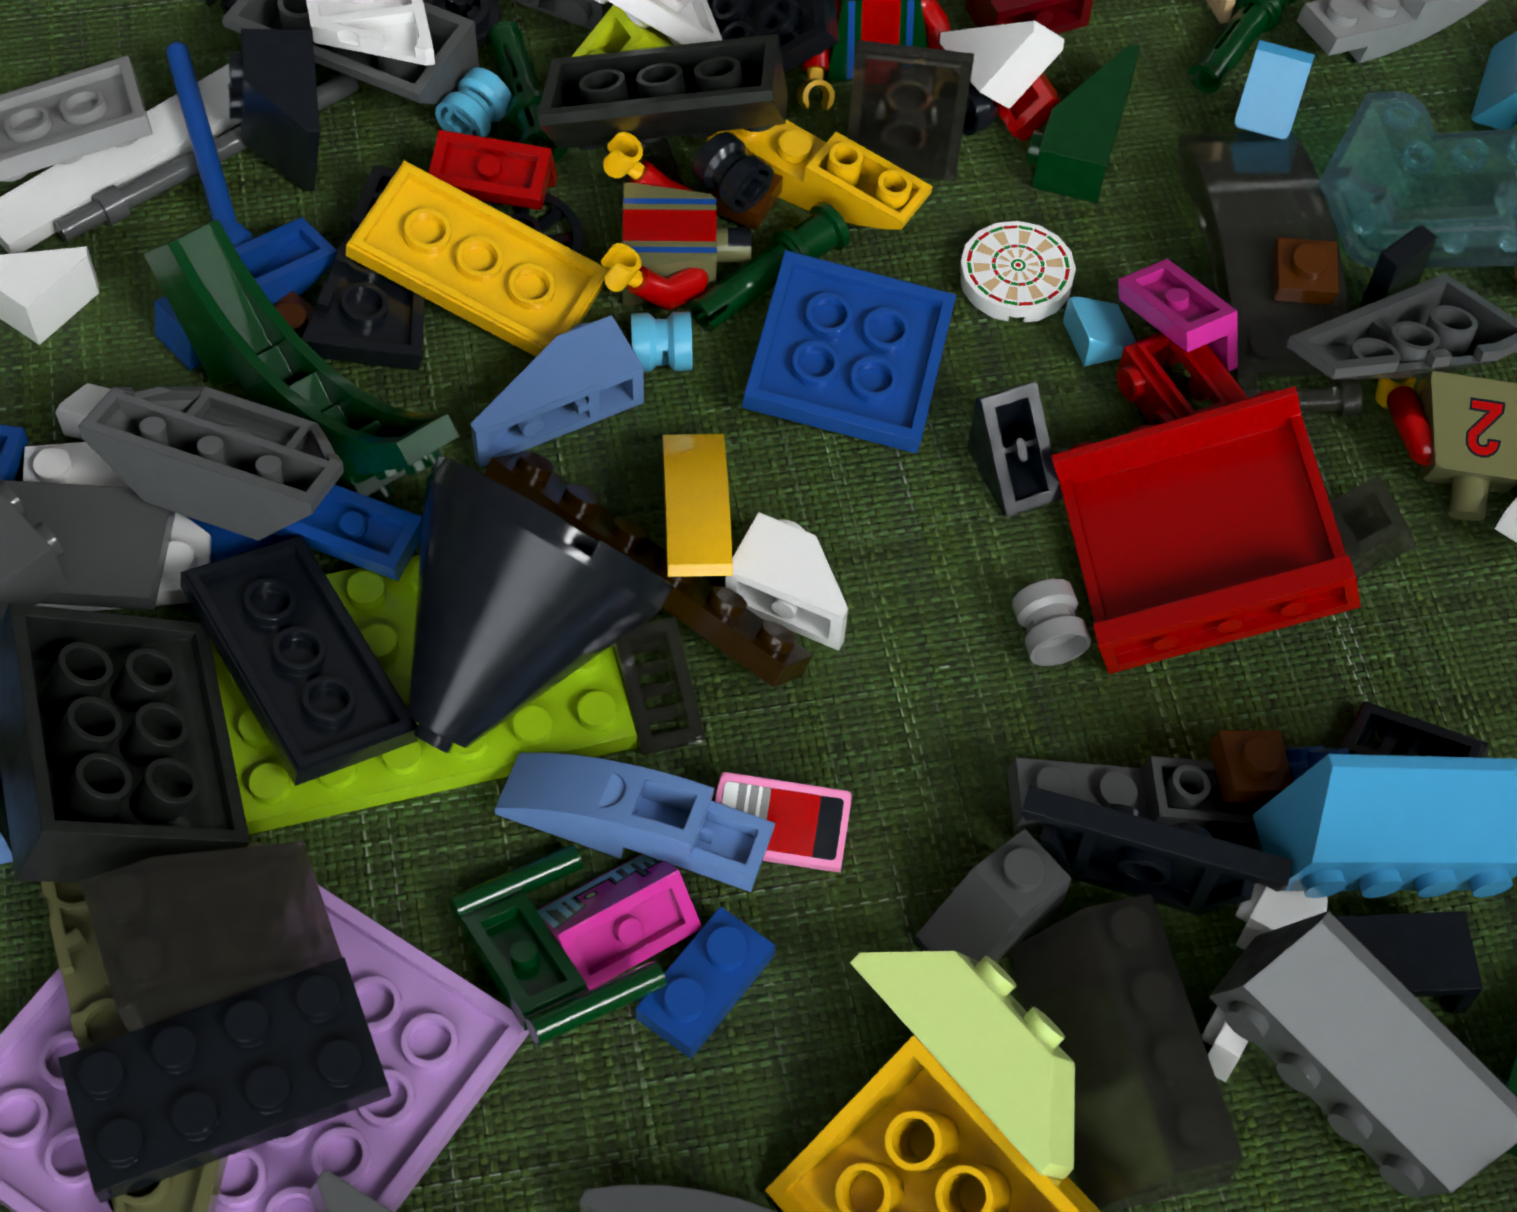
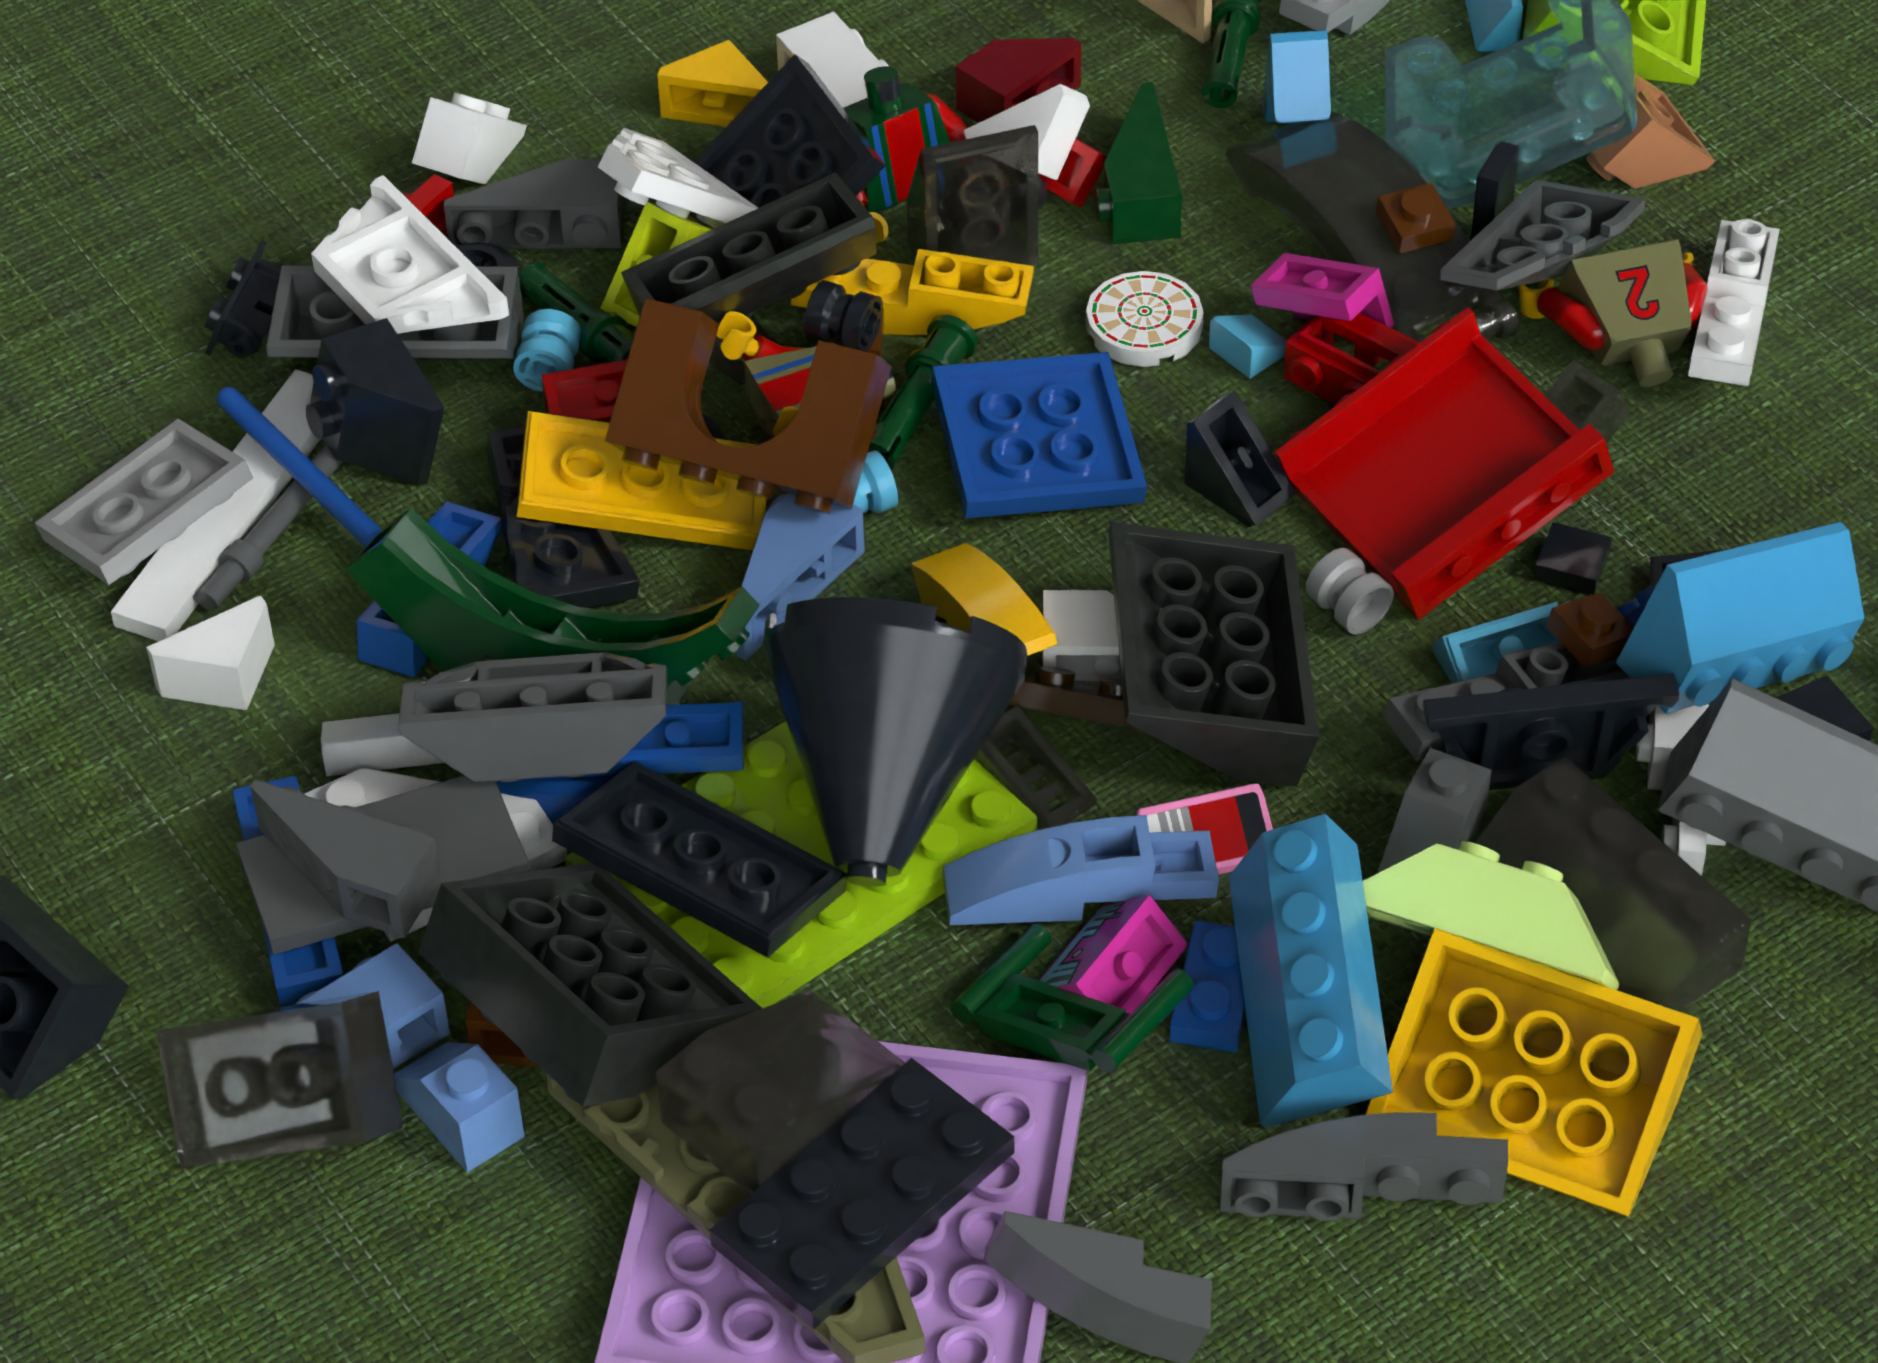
camera: 20 degrees left, 10 degrees down
(504, 214) = (812, 458): none -> reddish brown arch
(778, 1026) = (1308, 972): none -> dark azure slope
(872, 637) = (1215, 649): none -> pearl dark grey slope
(1139, 733) = (1479, 649): none -> medium azure slope
(1288, 671) = (1573, 558): none -> black tile

